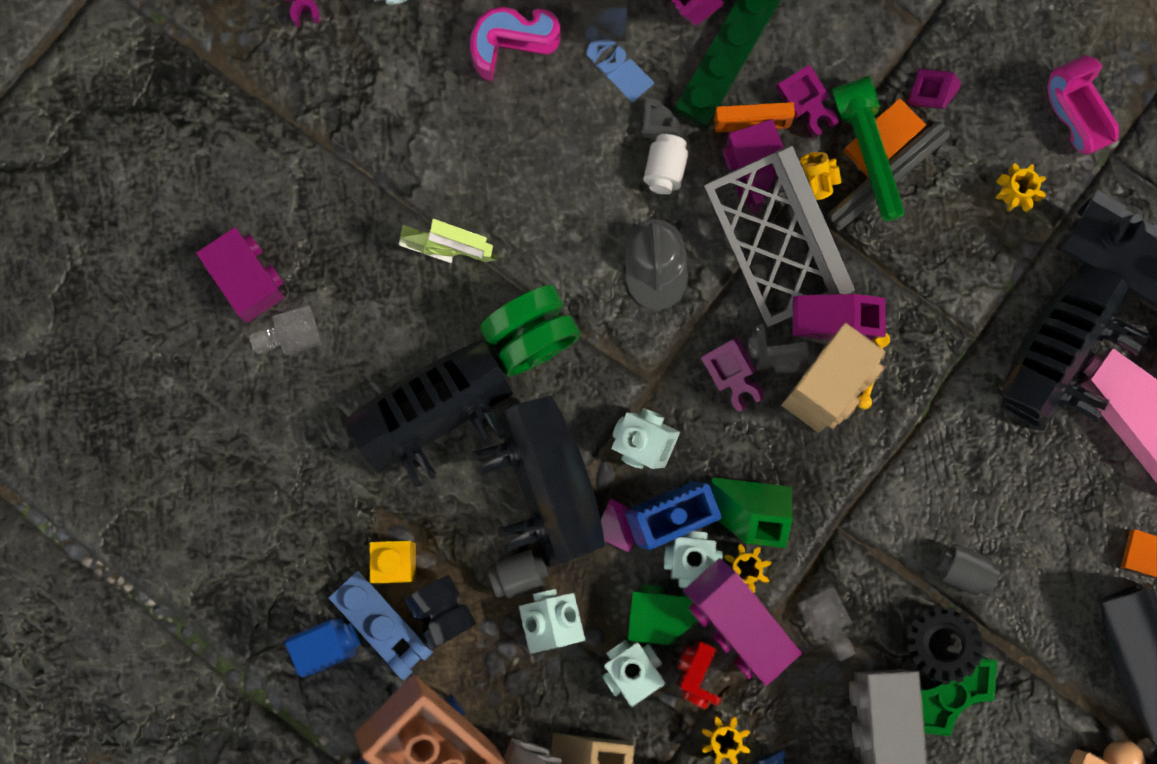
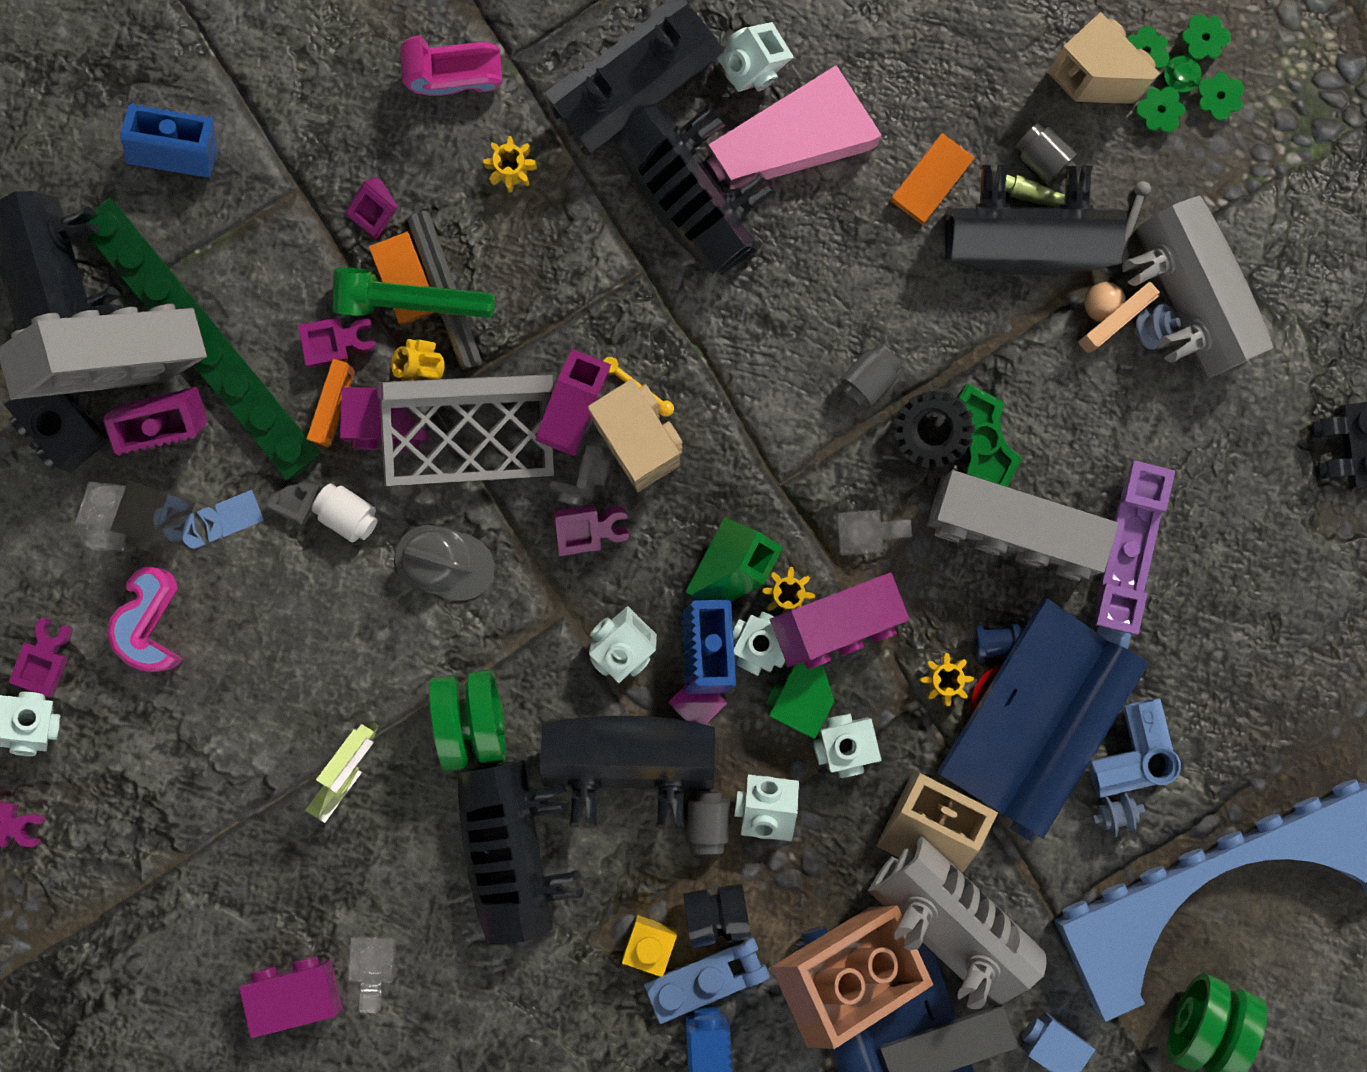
camera: 75 degrees left, 5 degrees up
(694, 664) = (864, 684): red bracket -> none

